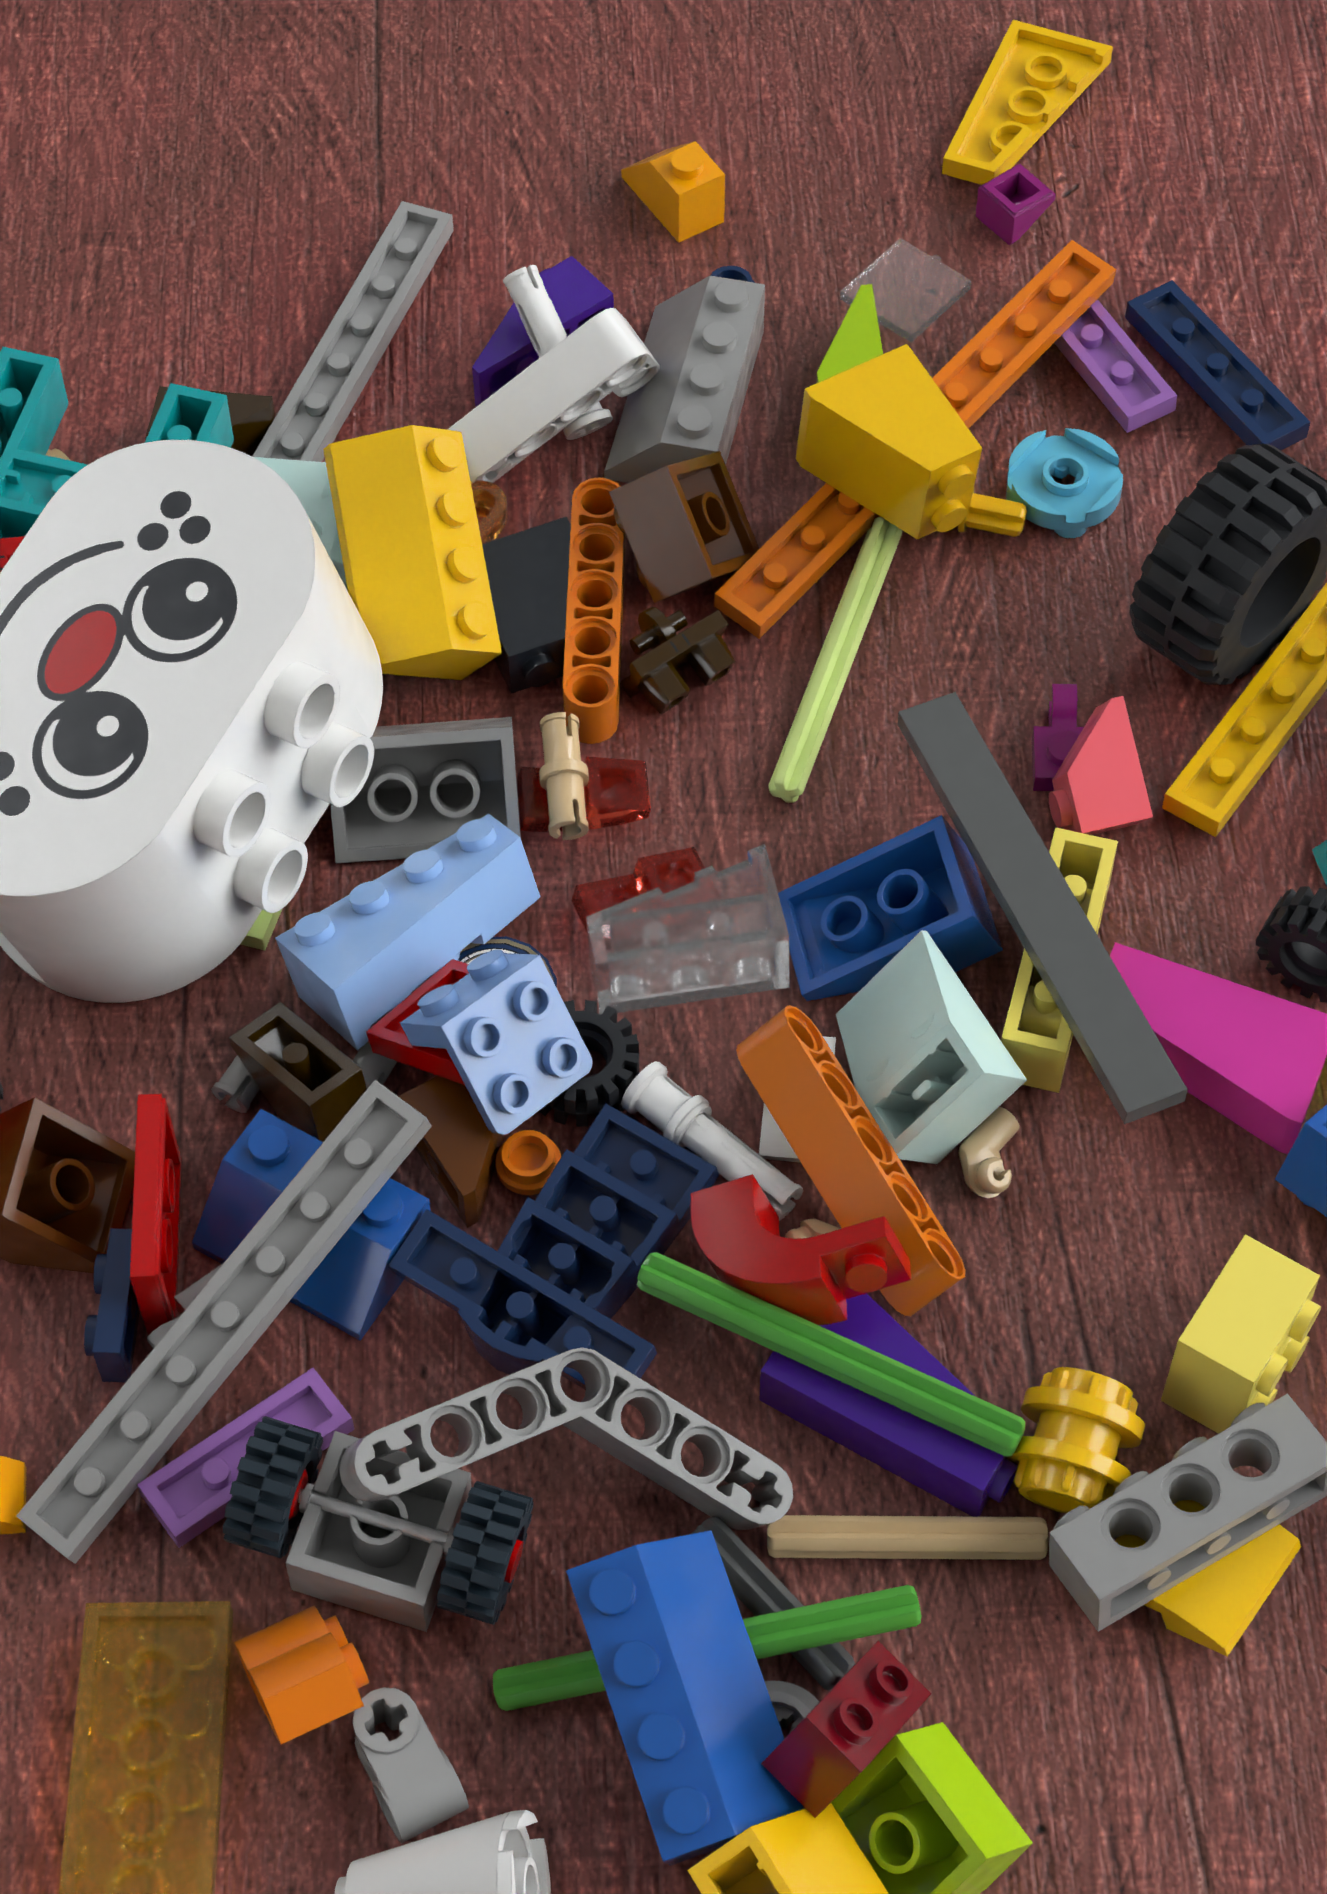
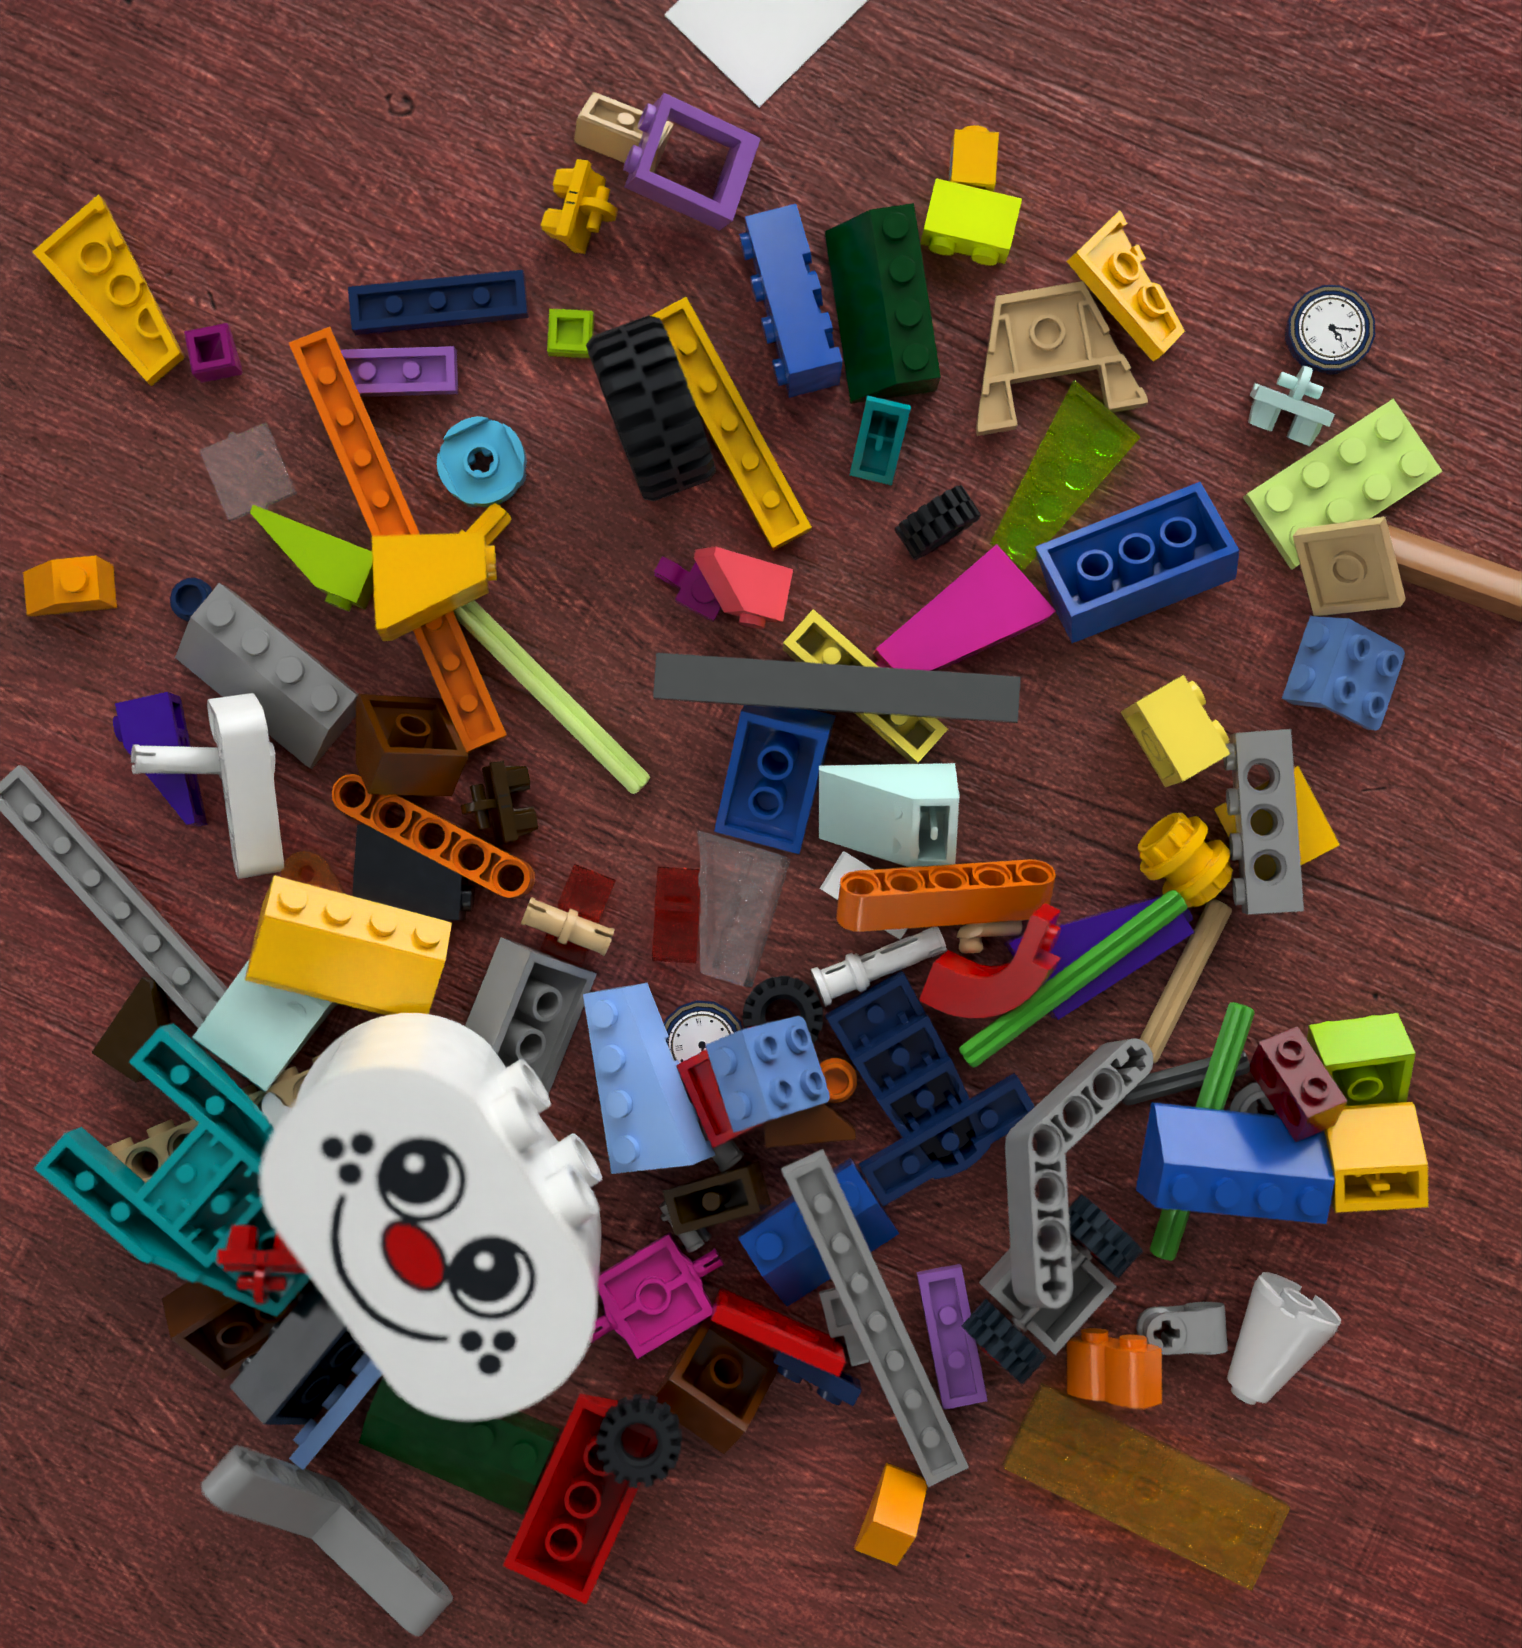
camera: 60 degrees left, 30 degrees up
(132, 1054) = (654, 1295): none -> dark pink plate
(981, 1155) = (975, 808): tan arm -> none

